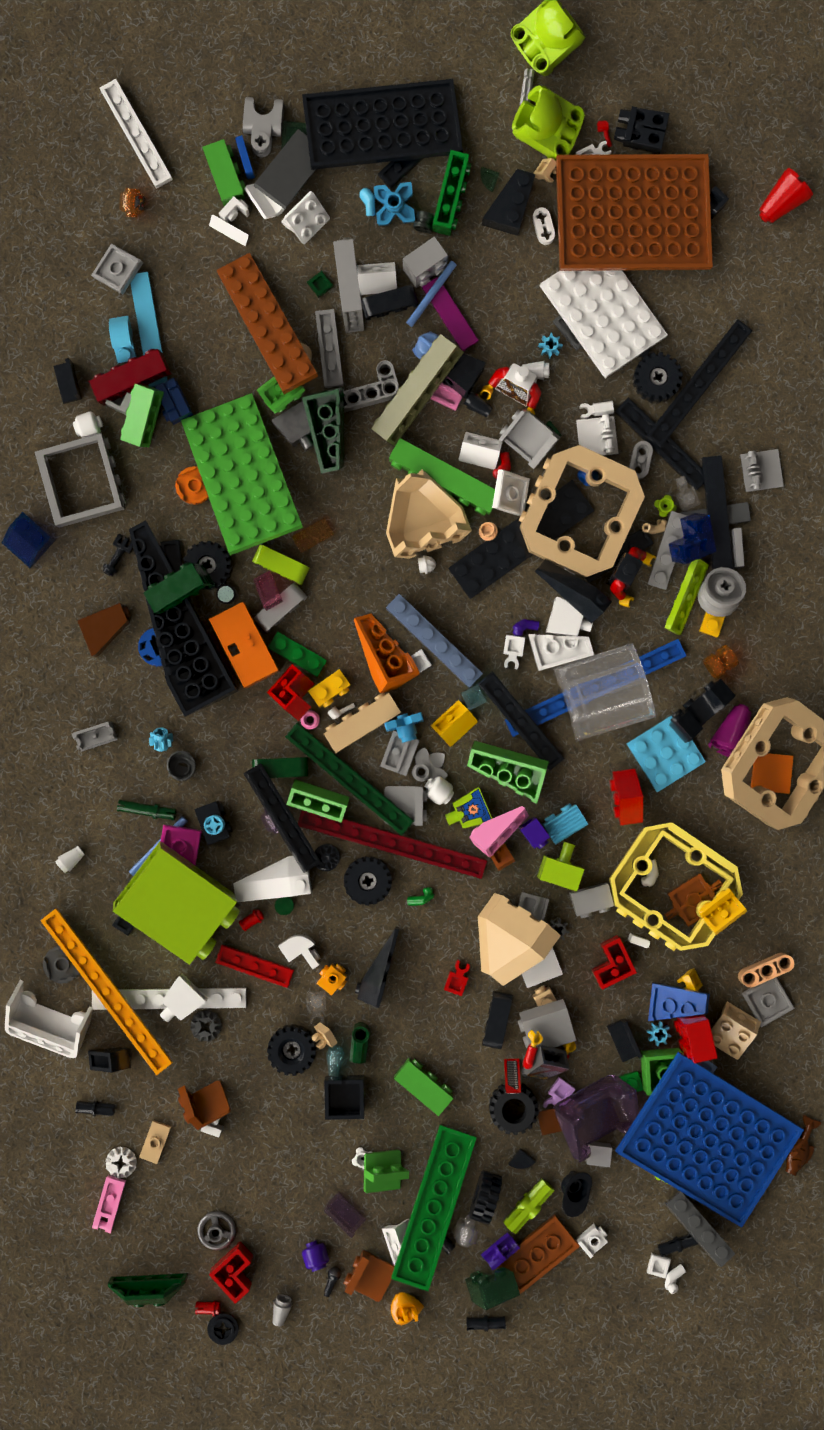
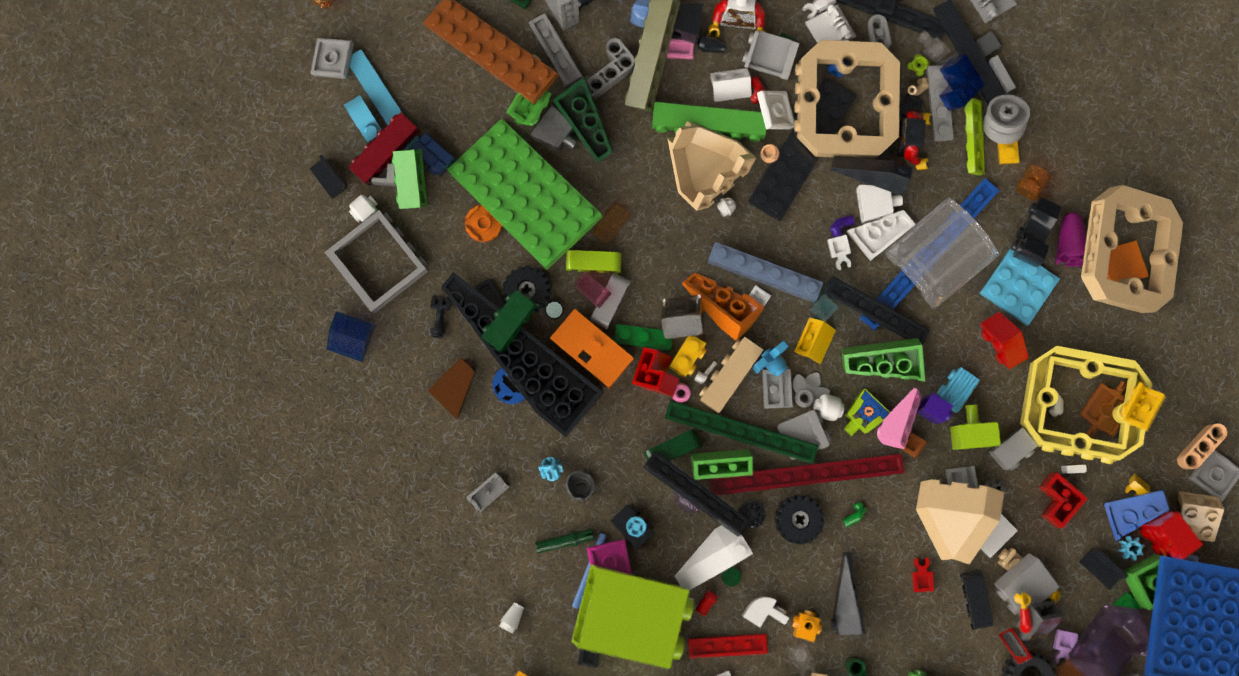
camera: 20 degrees left, 5 degrees down
(339, 651) = (683, 316): none -> clear smoke brick

